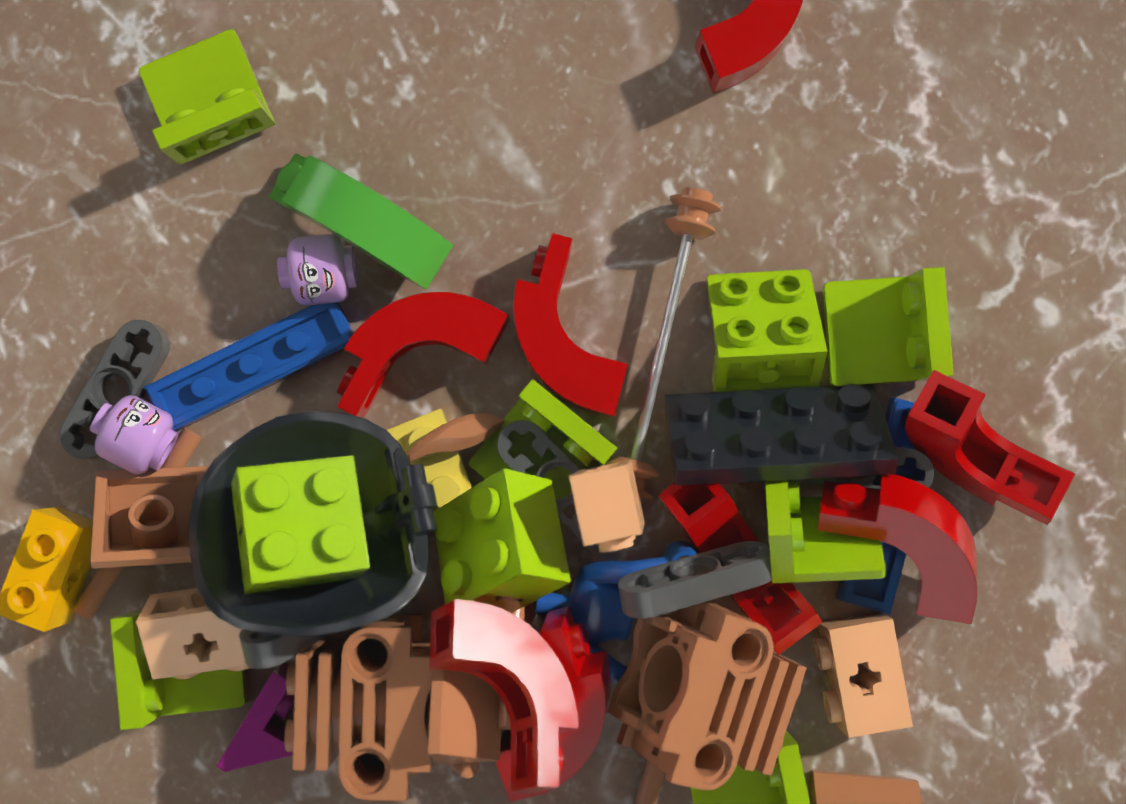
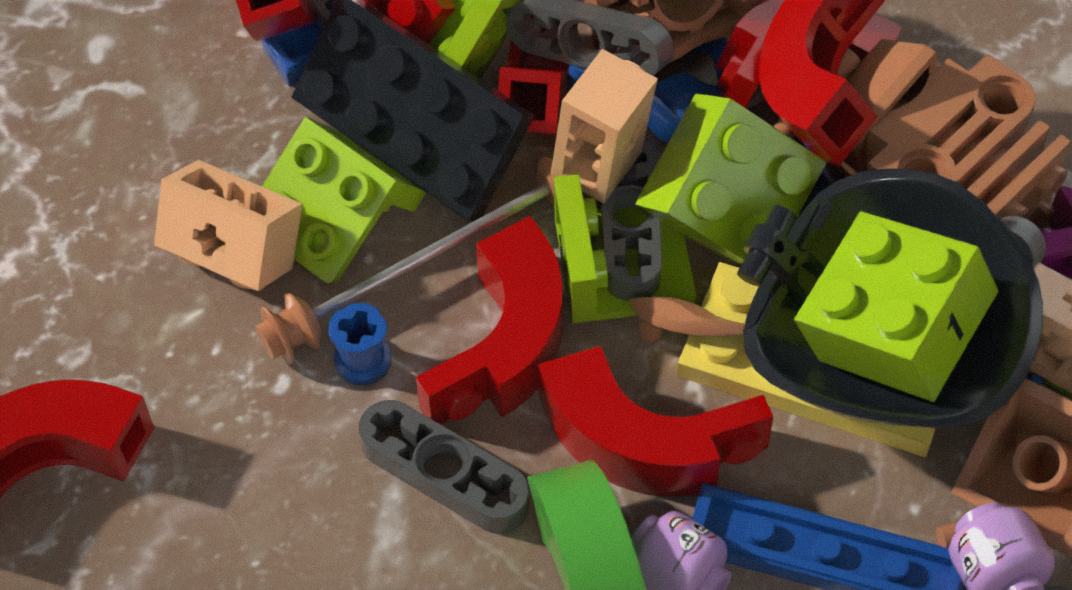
camera: 130 degrees left, 30 degrees down
(480, 235) = (431, 439): none -> dark grey beam
(642, 228) = (360, 344): none -> blue bush
(800, 240) = (227, 225): none -> light nougat brick
(888, 328) = (226, 110): lime bracket -> none

